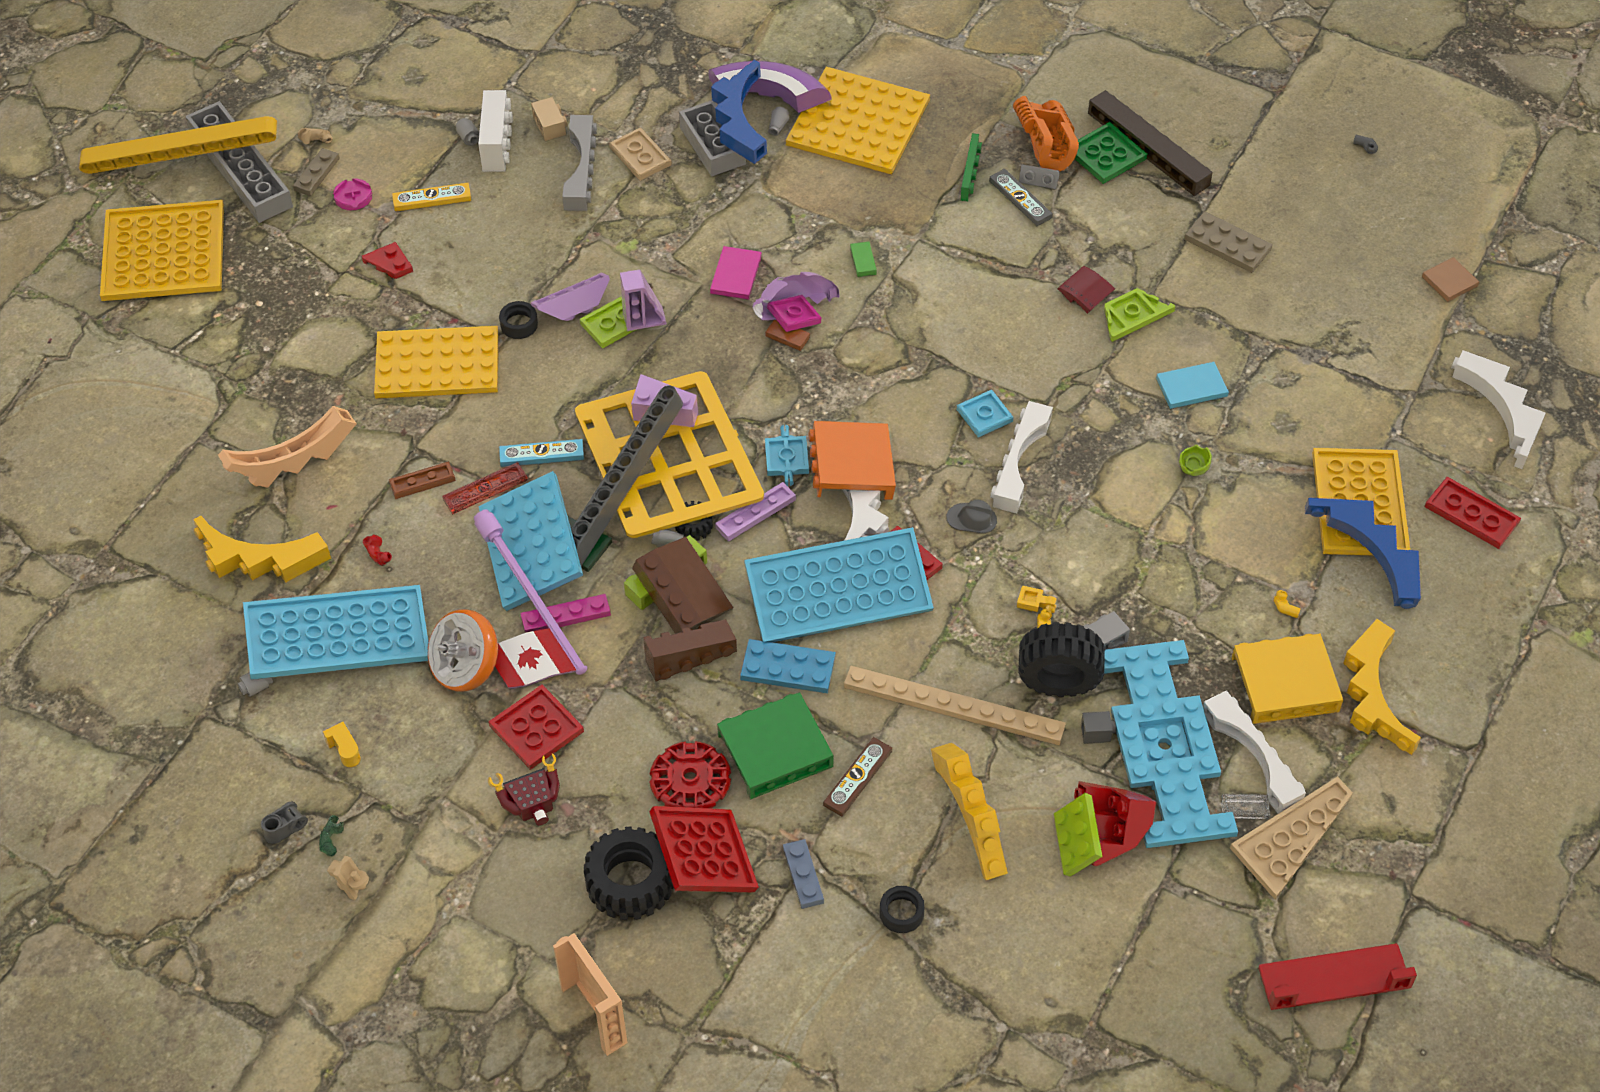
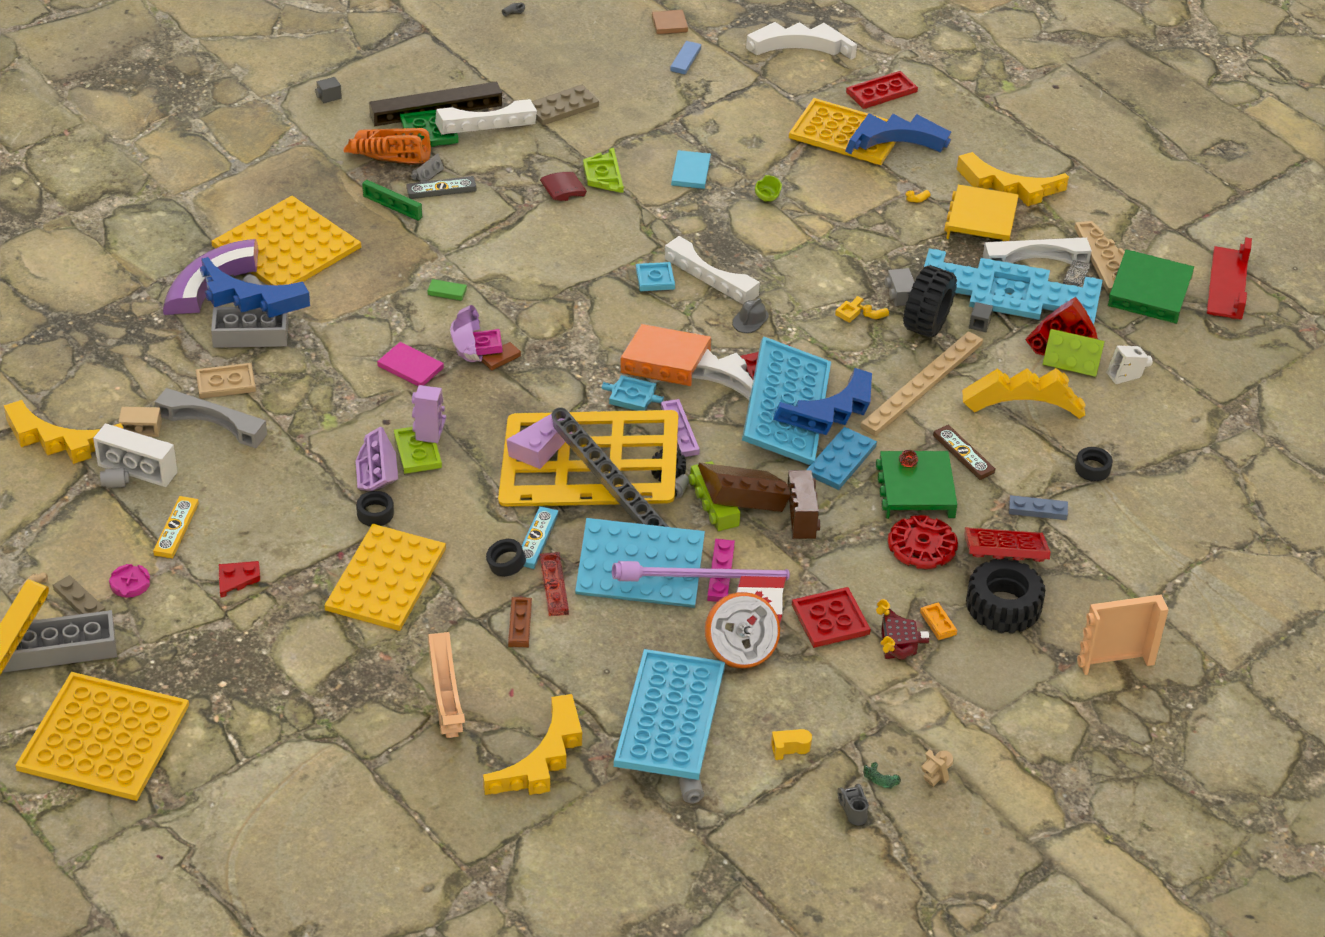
camera: 70 degrees left, 10 degrees down
(373, 545) = (594, 671): red piece -> none
(490, 428) = (501, 547): none -> black tyre
(499, 58) = (31, 429): none -> yellow arch
(573, 825) = (938, 621): none -> light orange plate
(790, 714) = (908, 458): none -> clear red plate
(826, 619) = (820, 414): none -> blue arch
(1095, 899) = (1128, 364): none -> white torso
(1112, 56) = (328, 90): none -> dark grey brick
(1175, 209) = (455, 120): none -> white arch
(1259, 885) = (1150, 286): none -> green panel
(1393, 314) = (685, 57): none -> medium blue tile

